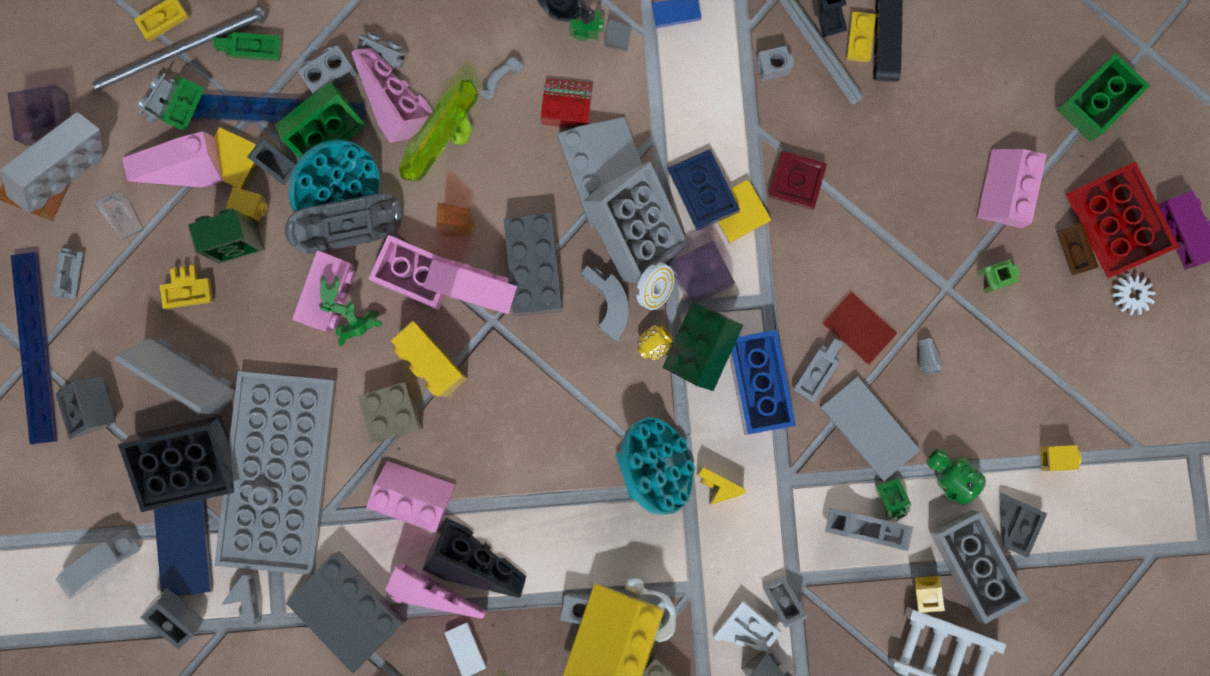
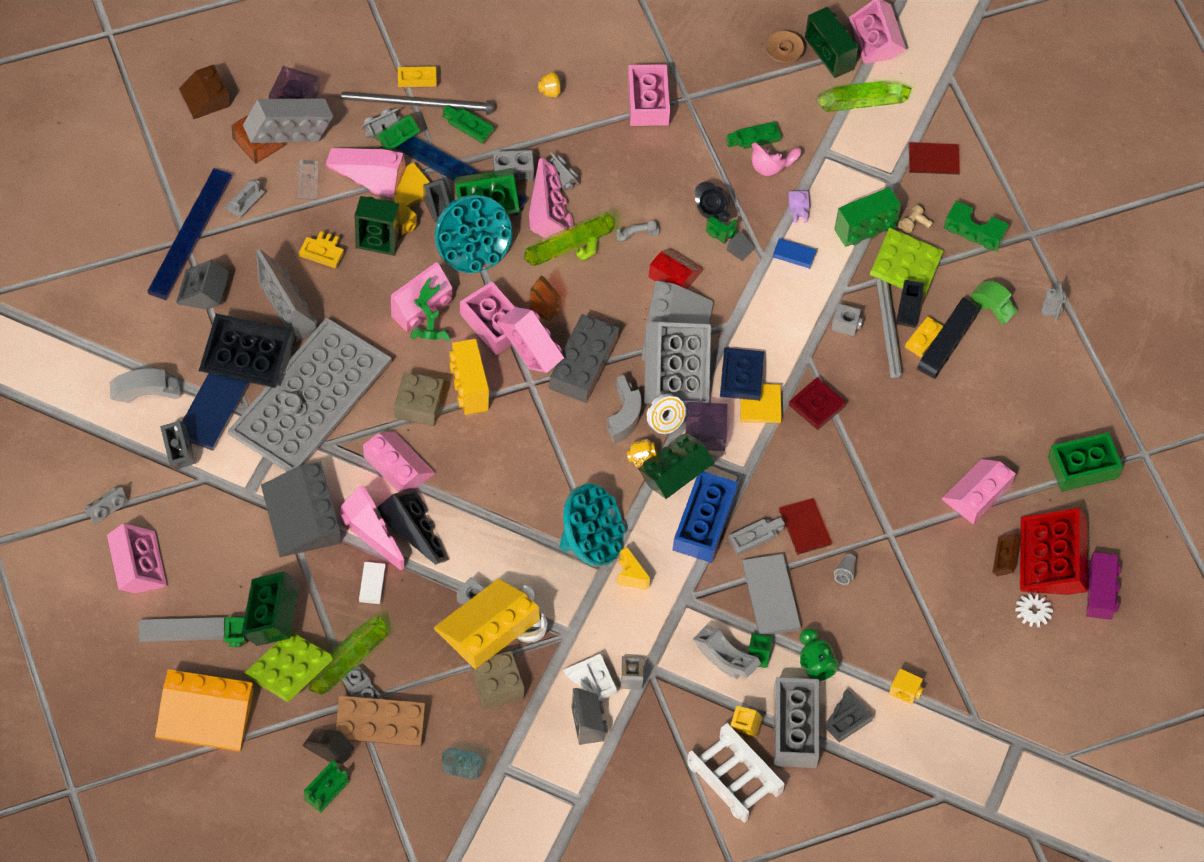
camera: 30 degrees right, 25 degrees down
(246, 593) = (235, 461): light grey slope -> none
(344, 223) = (465, 258): dark grey piece -> none
(1010, 271) = (931, 547): bright green window -> none

